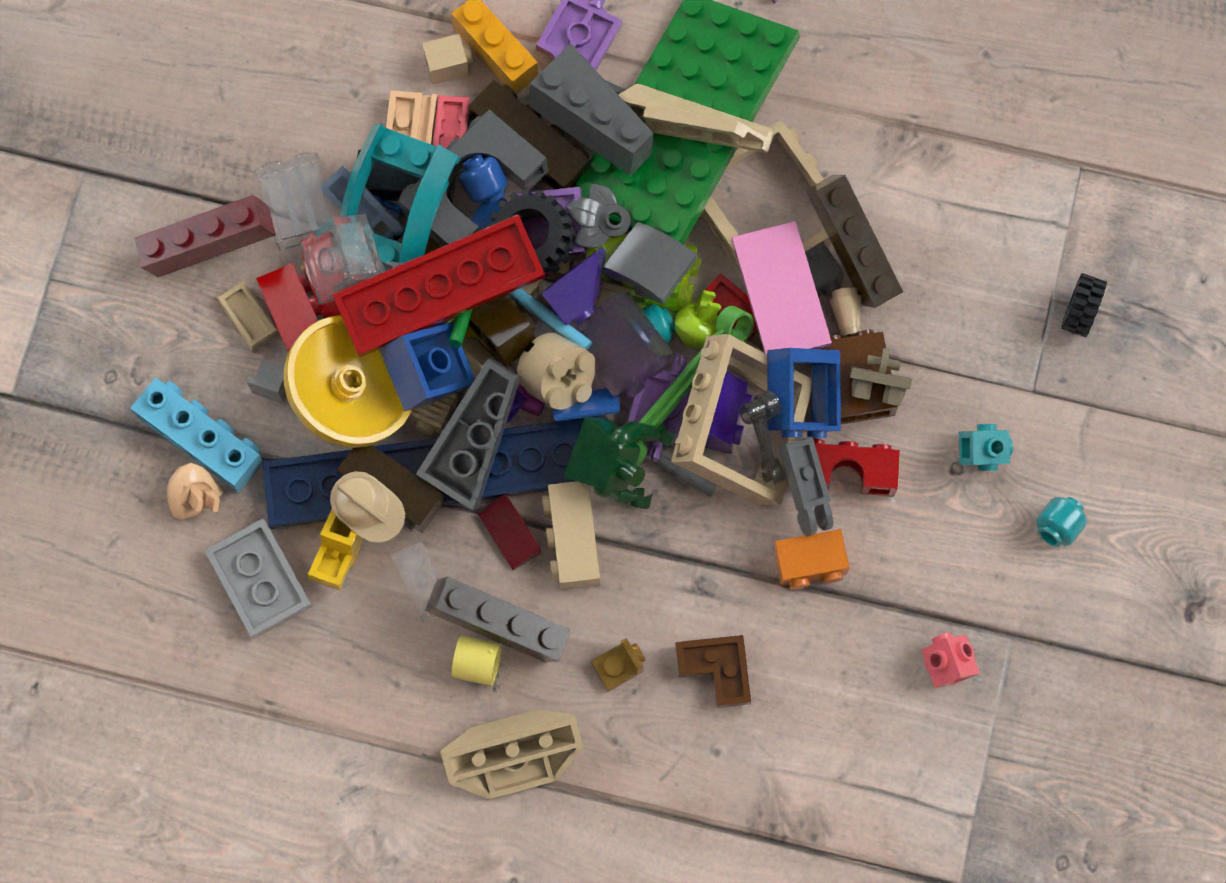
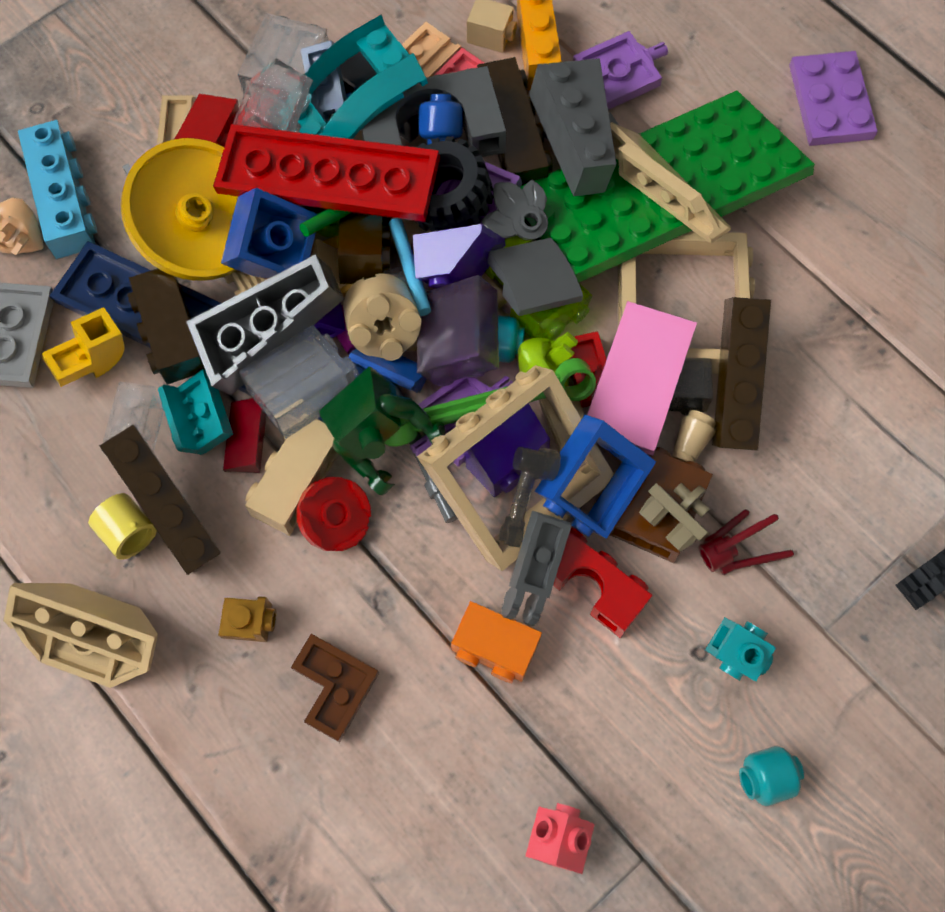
camera: 35 degrees right, 5 degrees down
(205, 236) = (185, 37): dark red brick -> none
(367, 507) = (126, 324): tan piece -> none
(462, 540) = (195, 414): none -> teal bracket
(530, 462) = (298, 379): none -> clear brick
(626, 545) = (333, 514): none -> red tile
(924, 384) = (720, 551): none -> dark red plant

